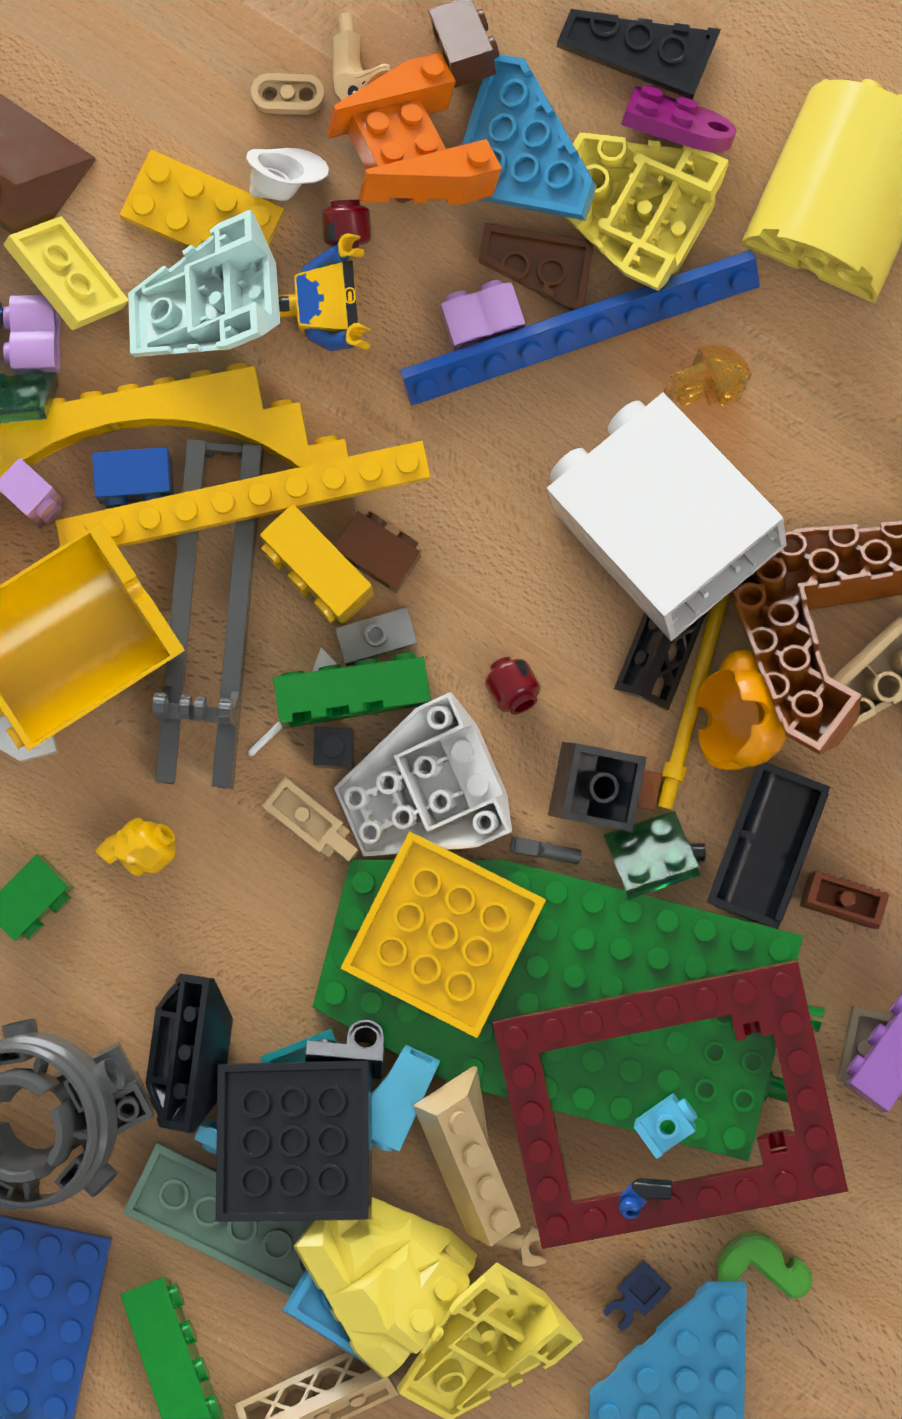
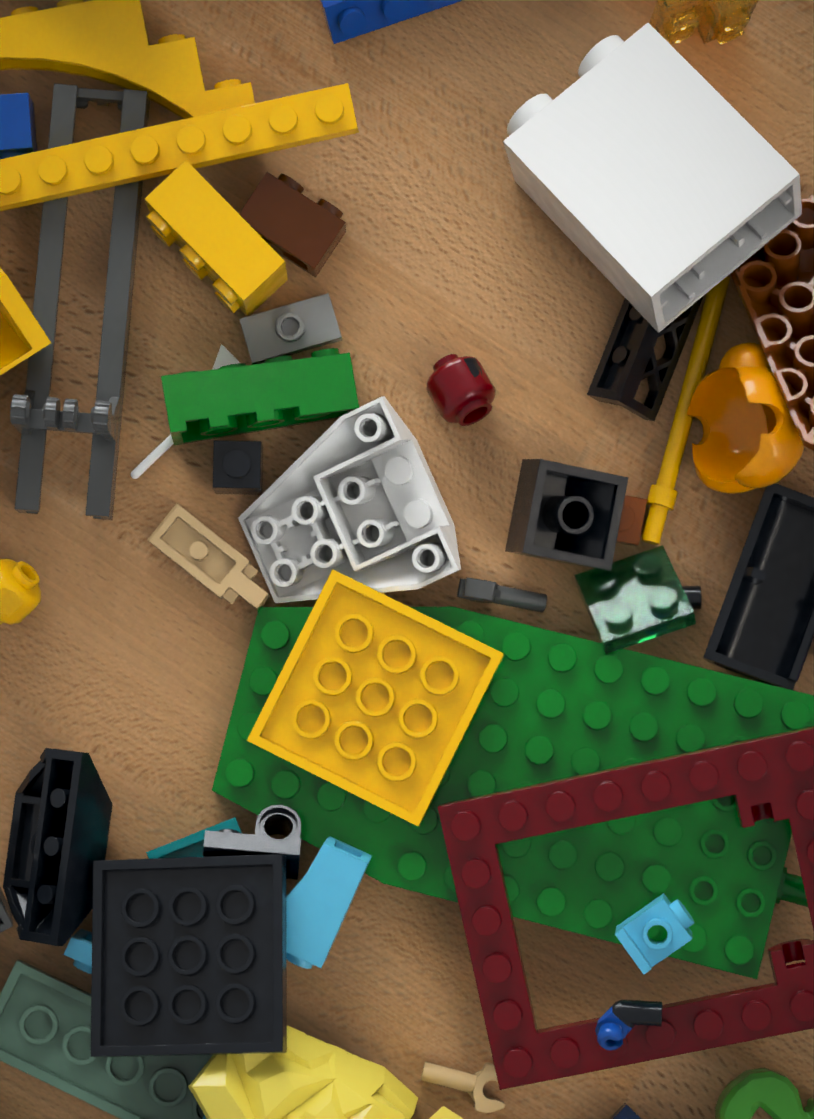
camera: 10 degrees left, 0 degrees up
(460, 1143) = (396, 956): tan wedge -> none

